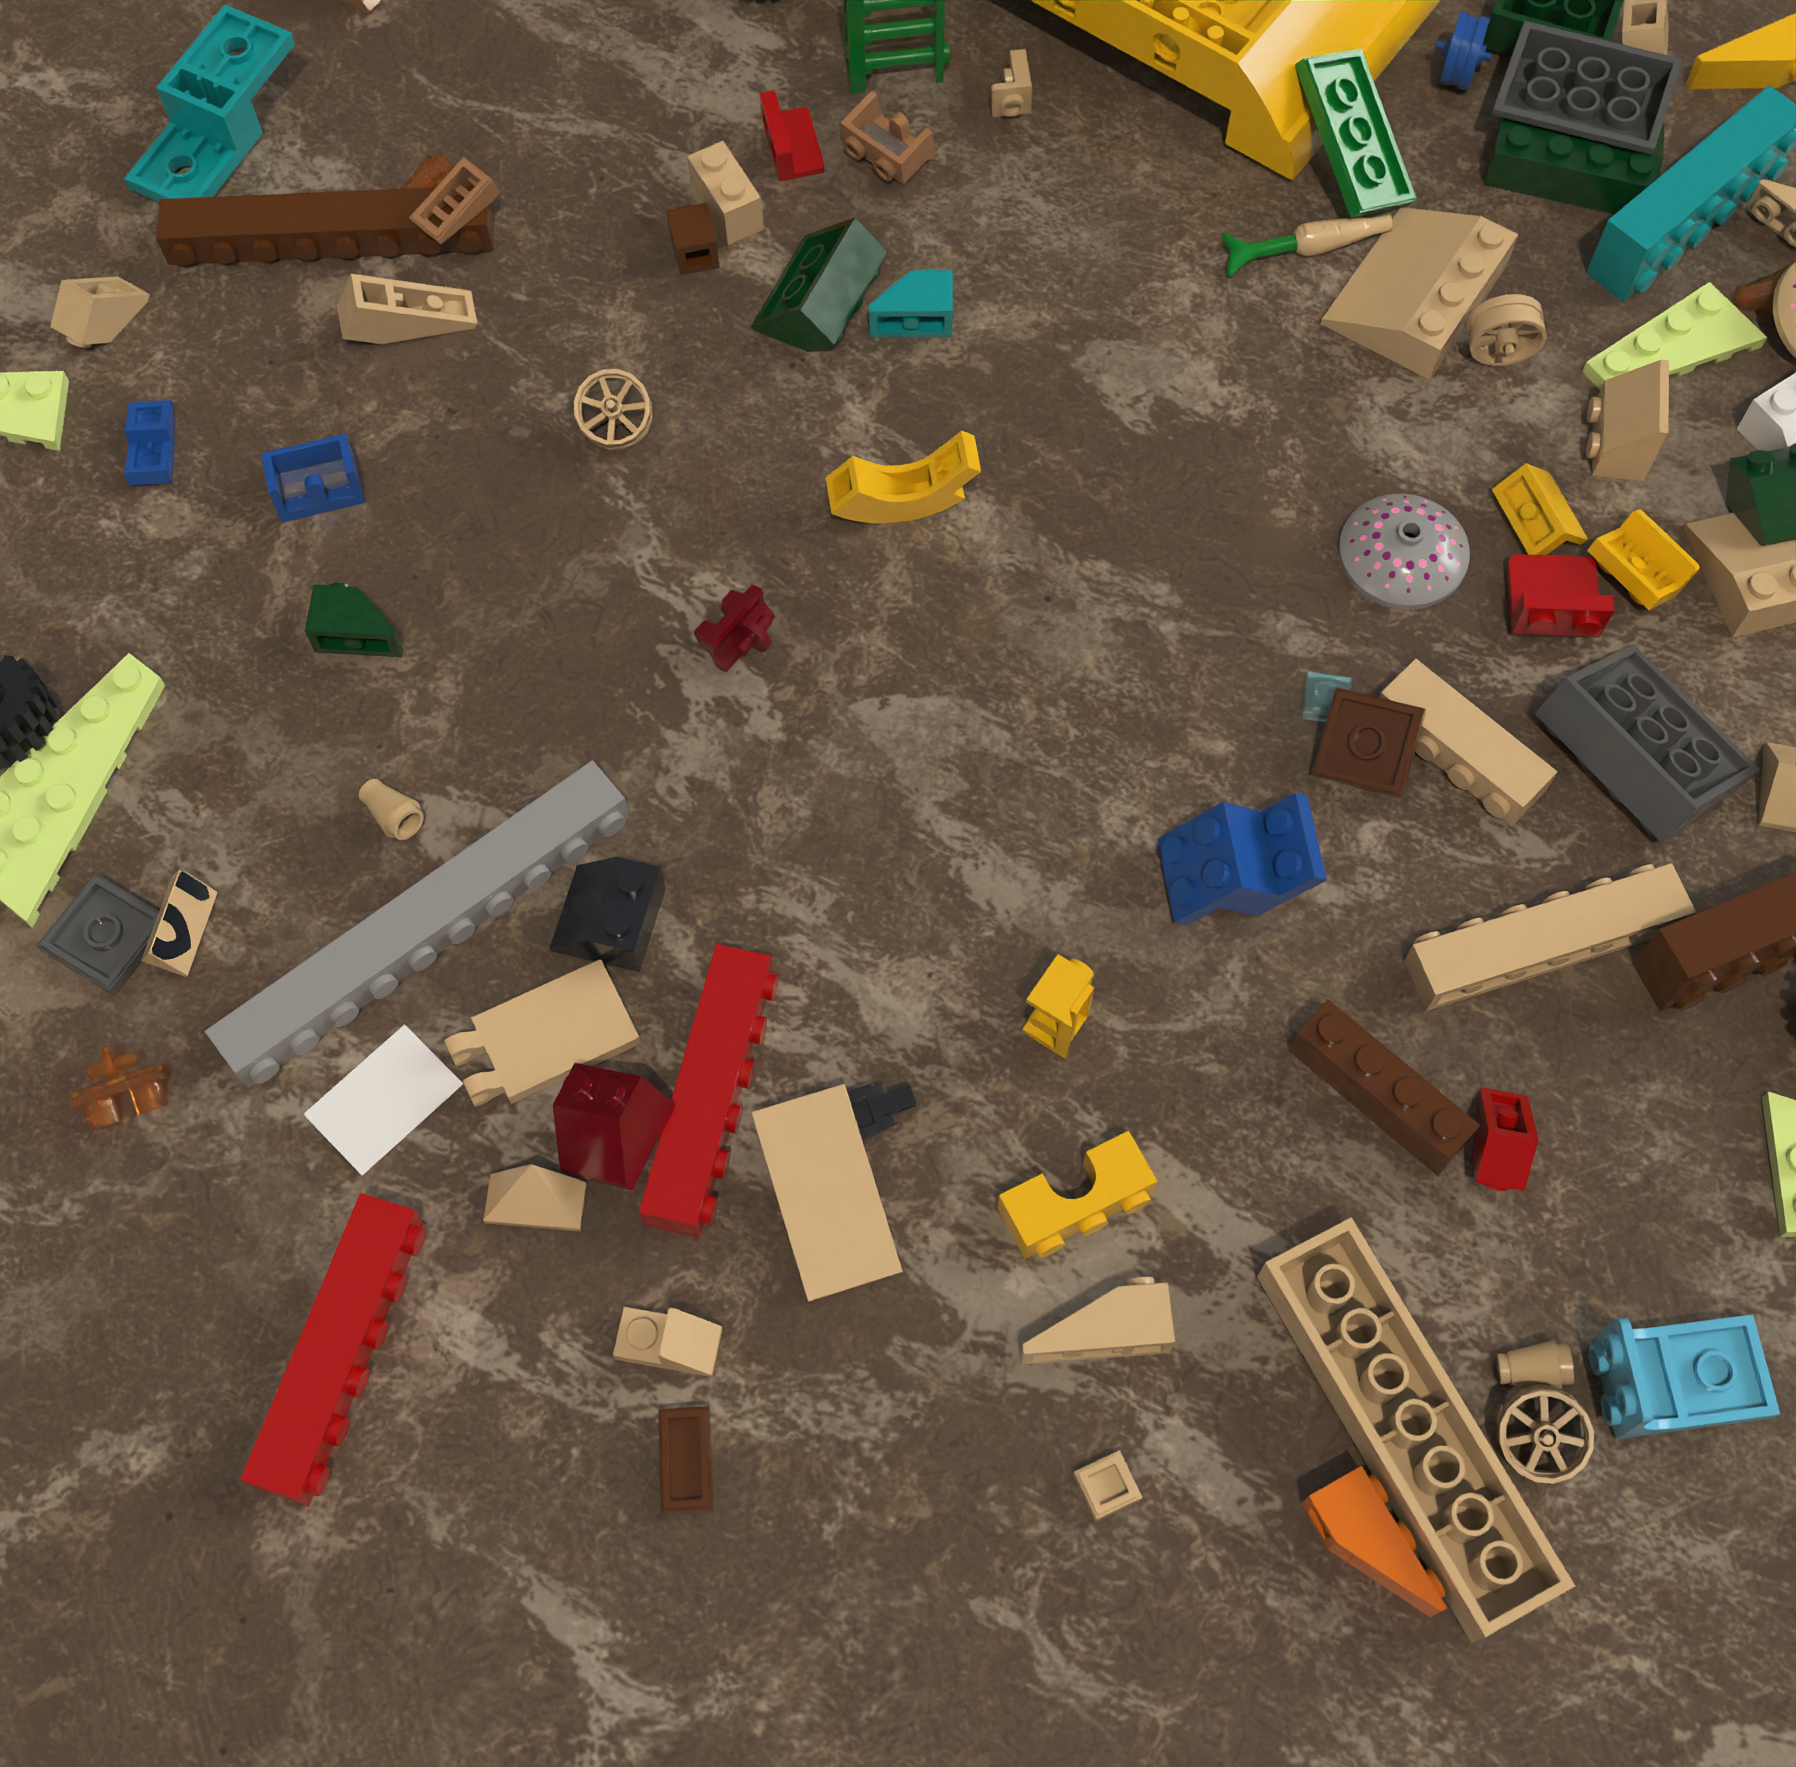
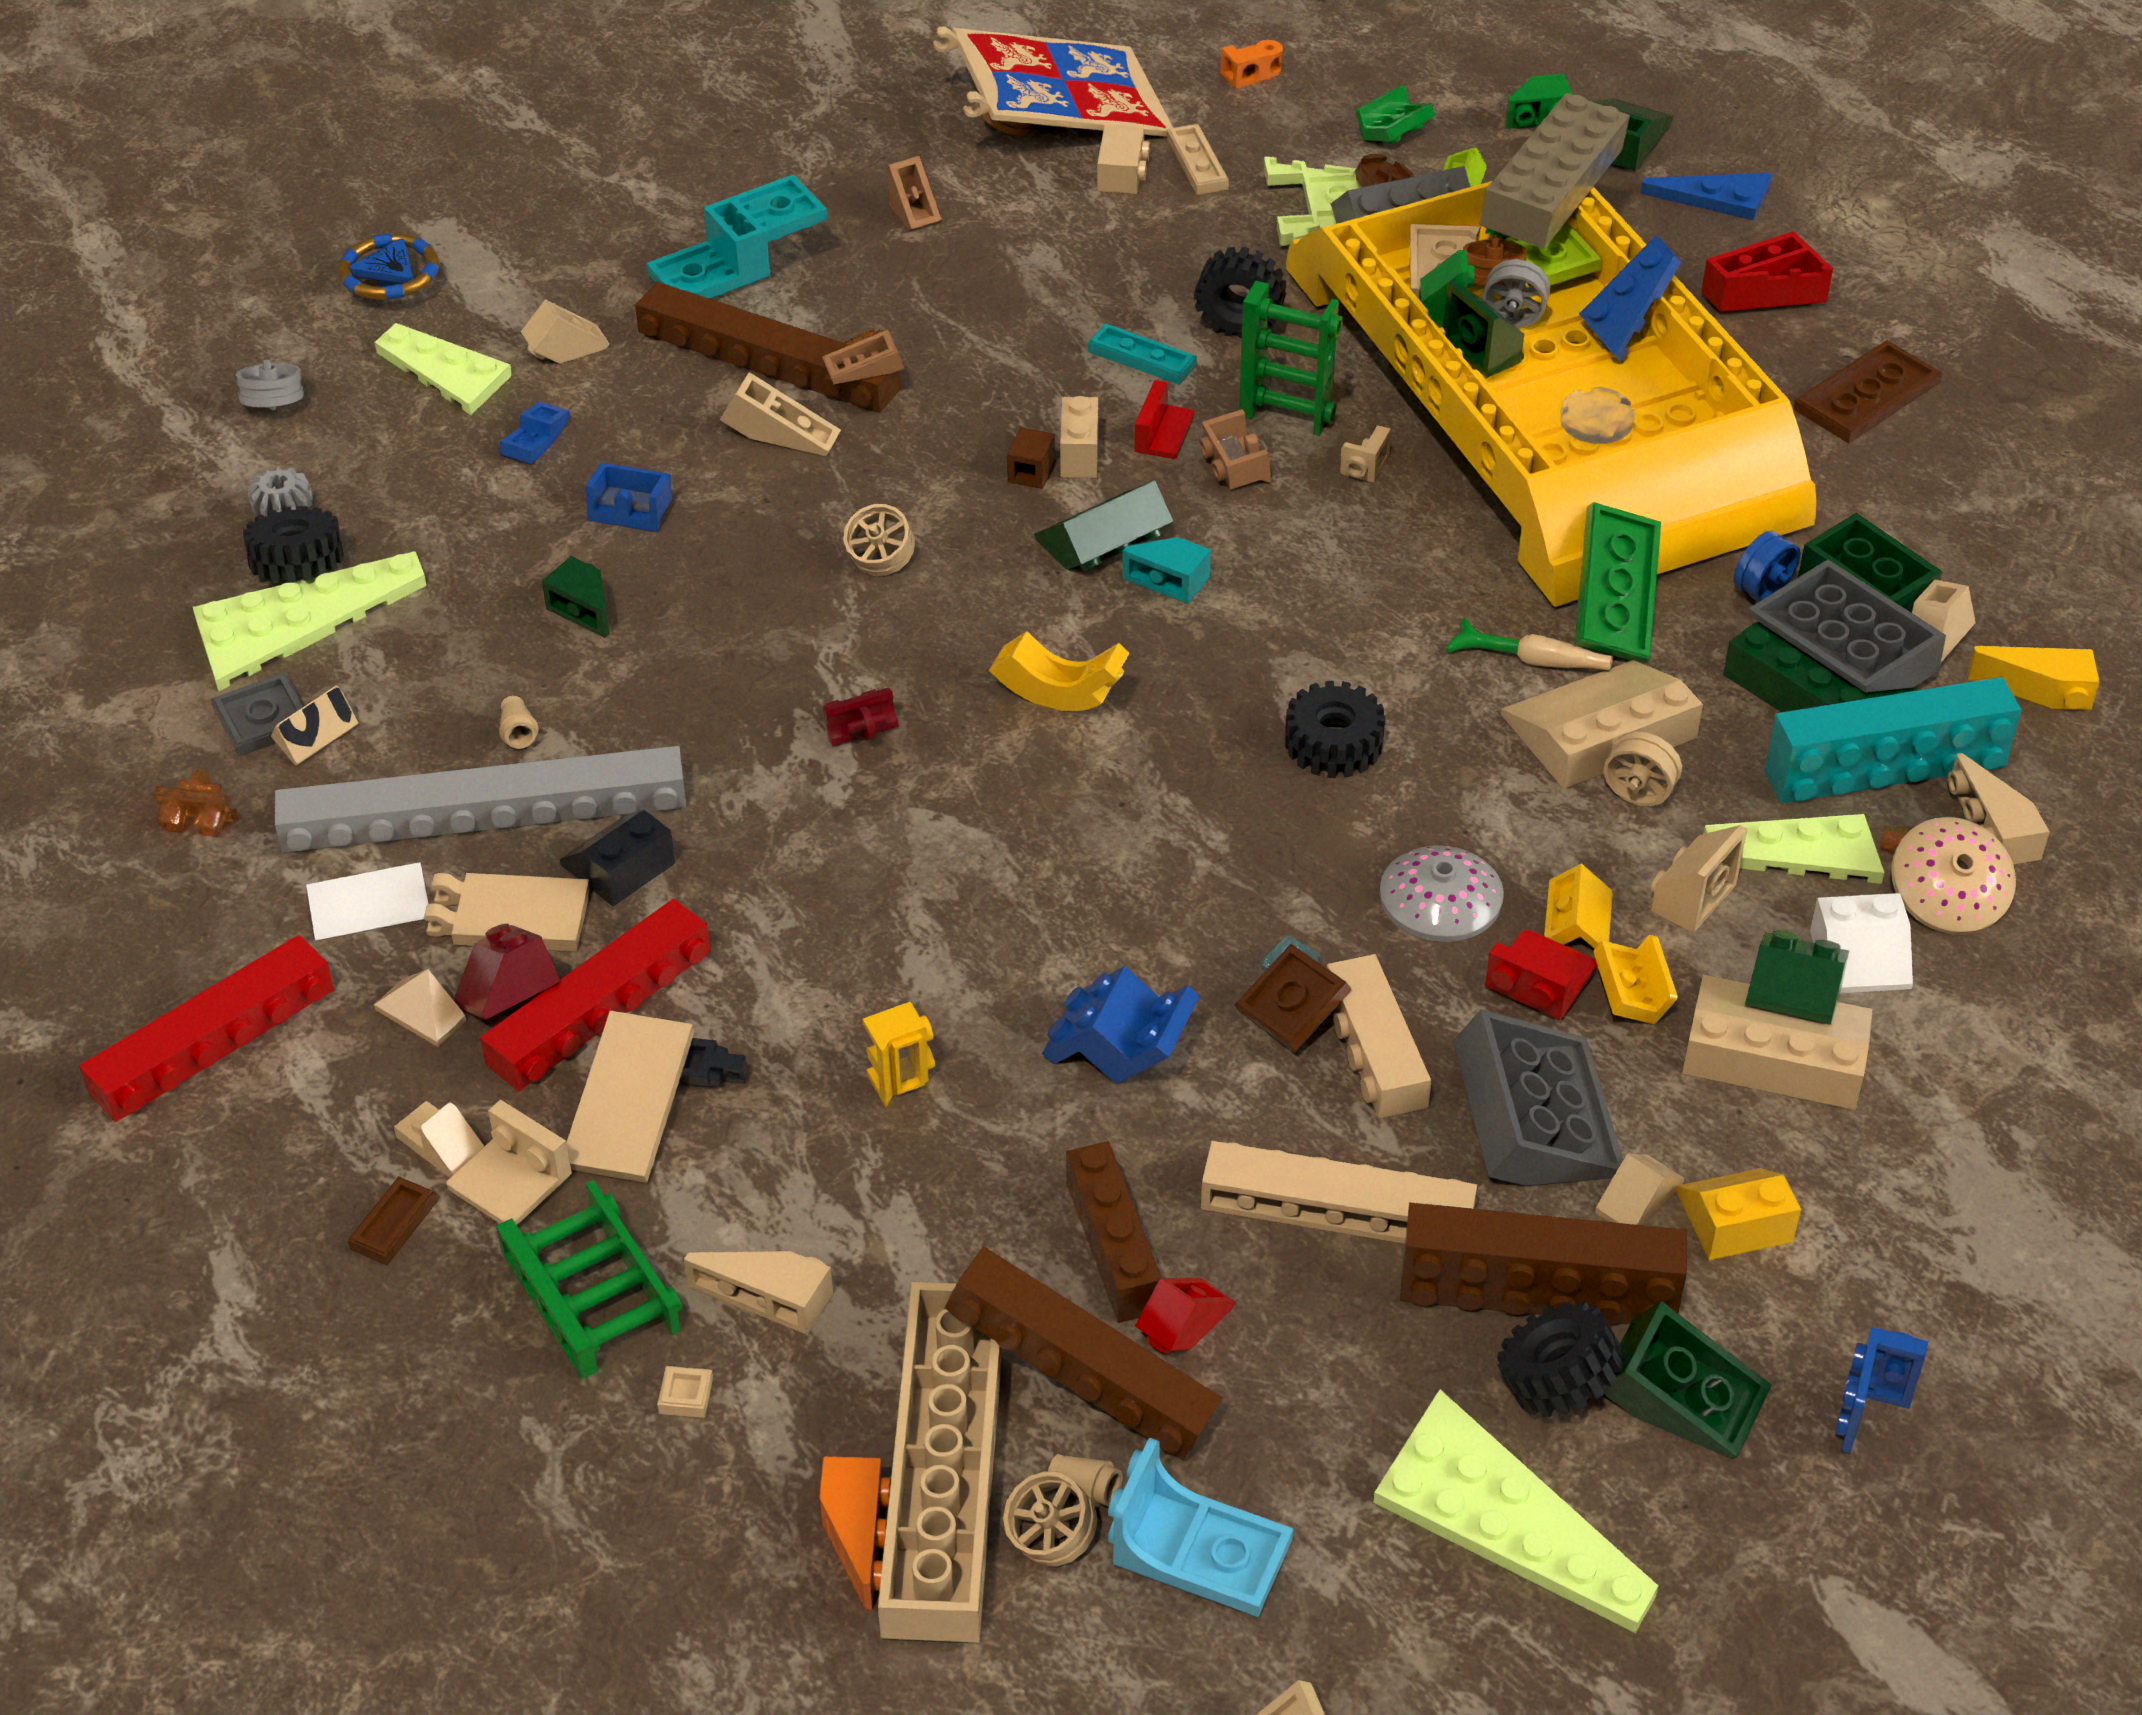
camera: 30 degrees right, 20 degrees down
(709, 62) = (1142, 353): none -> teal tile
(768, 1342) = (514, 1168): none -> tan bracket
(935, 1470) = (561, 1311): none -> green fence
(1043, 1219) = (847, 1197): yellow arch -> none
(1191, 443) = (1334, 748): none -> black tyre
(1469, 1250) = (1082, 1352): none -> reddish brown brick

